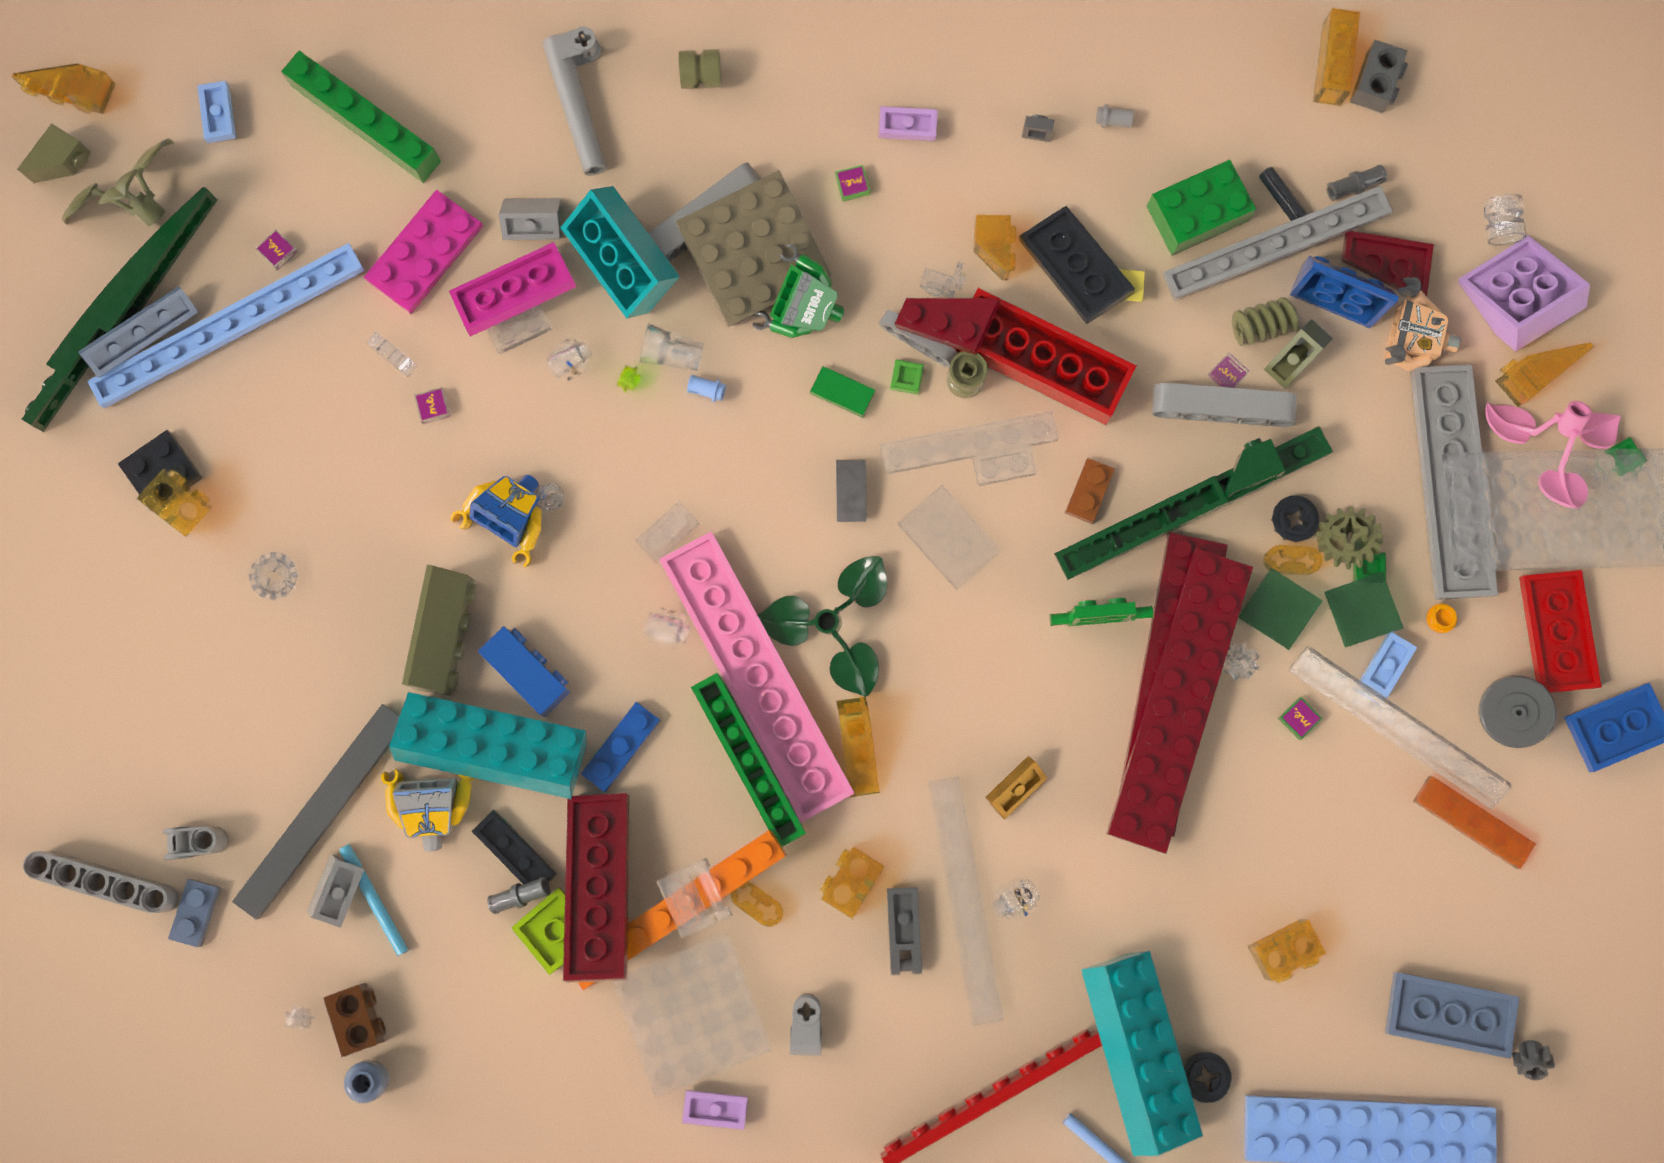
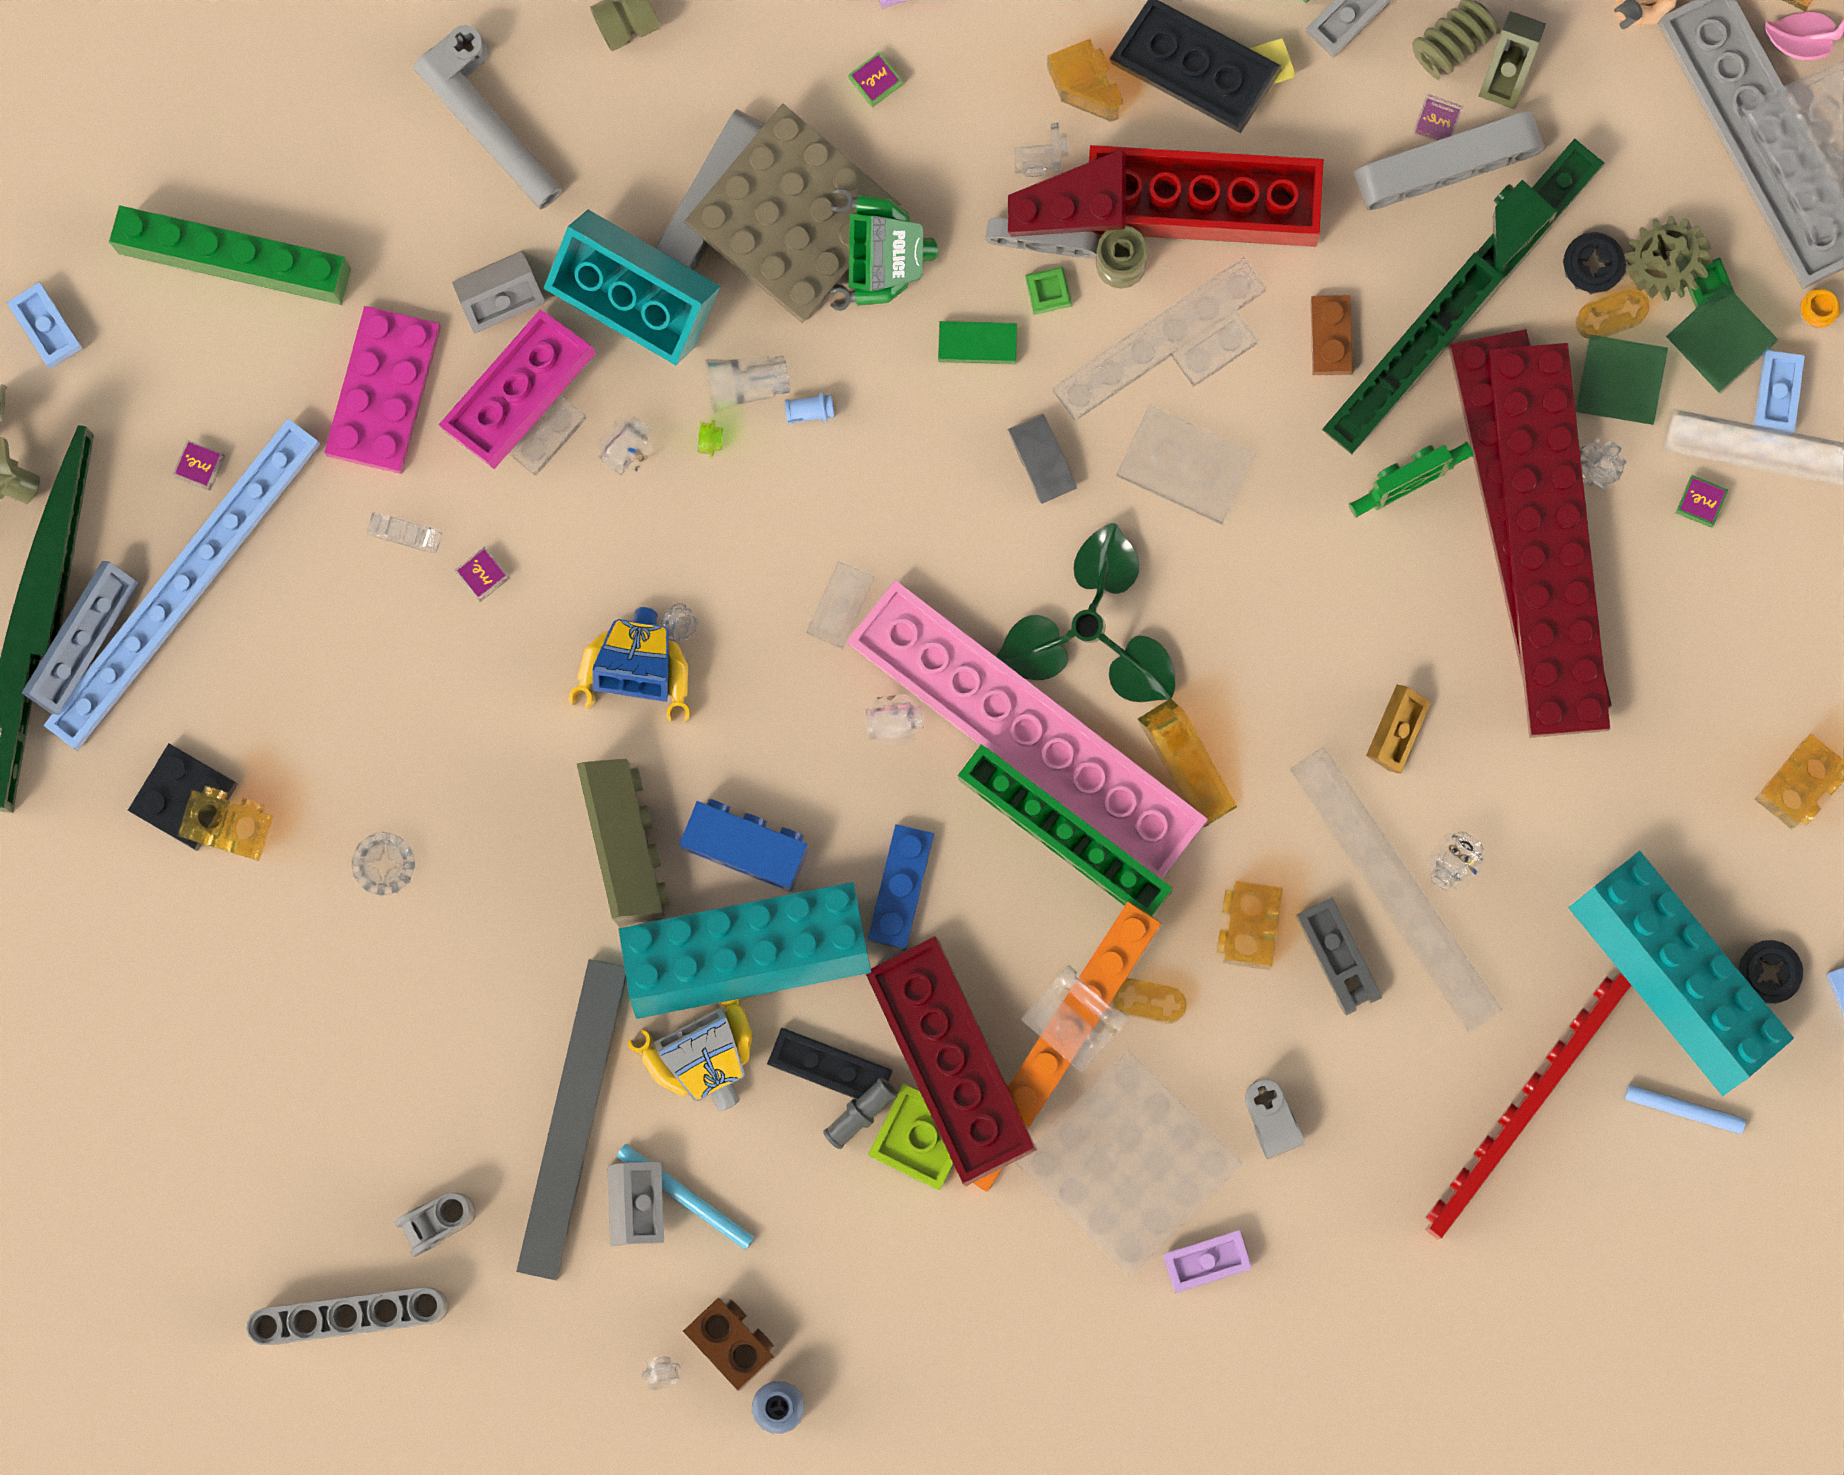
camera: 15 degrees left, 0 degrees up
(194, 913) = (475, 1306): sand blue plate -> none

